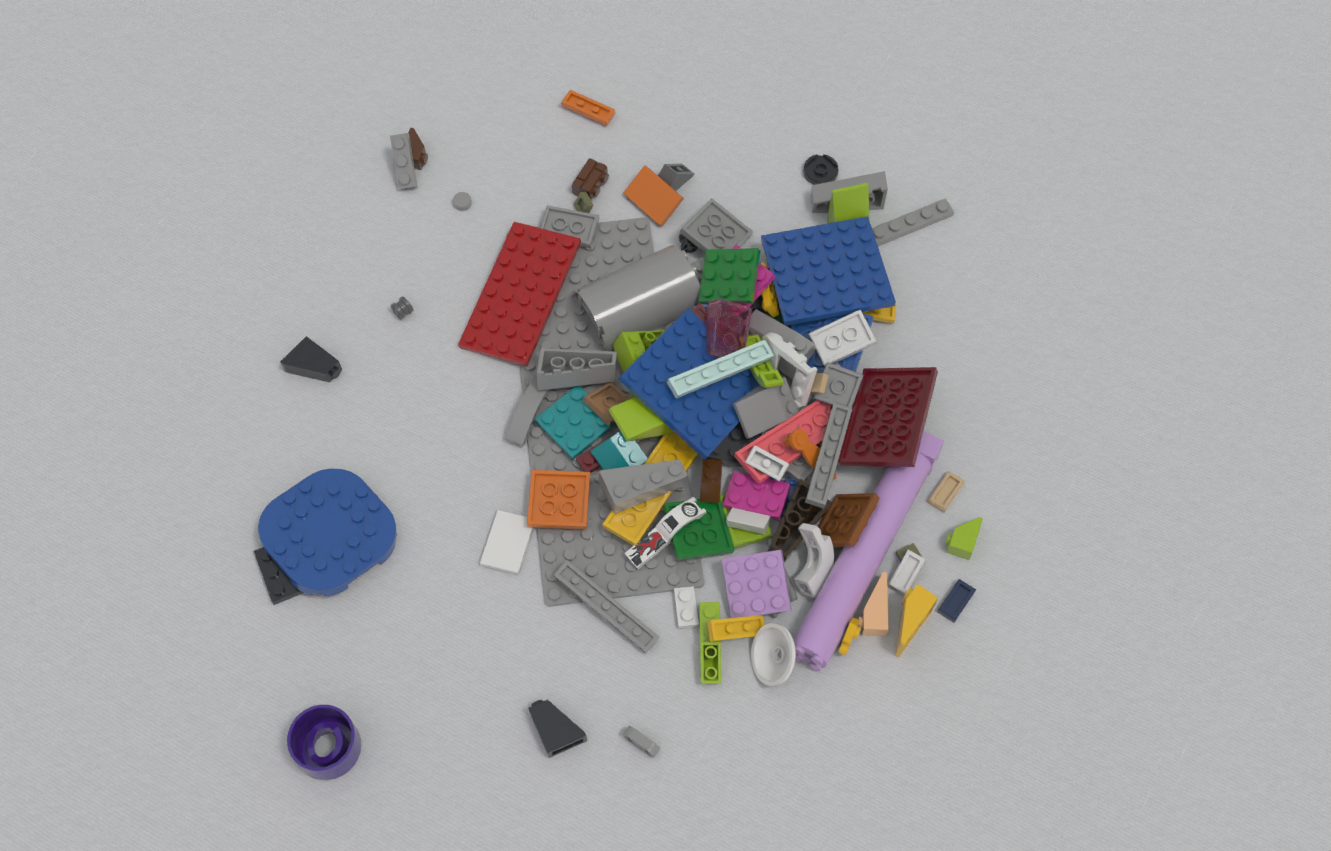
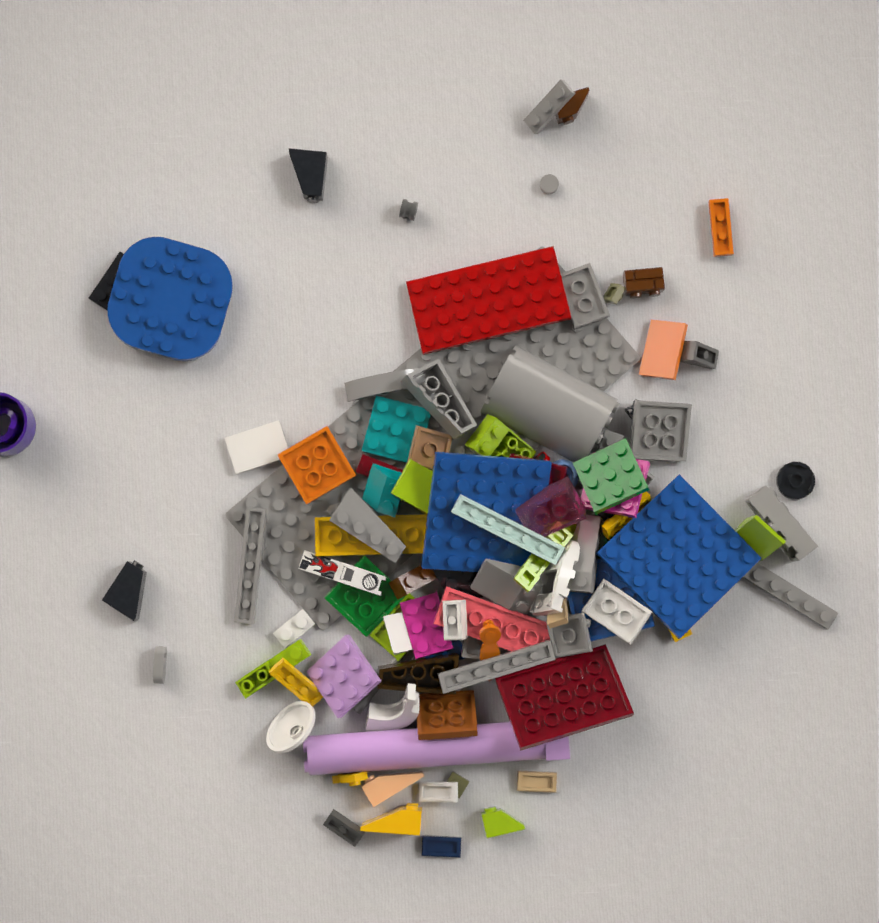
camera: 60 degrees right, 20 degrees up
(891, 669) = (344, 827): none -> dark grey plate

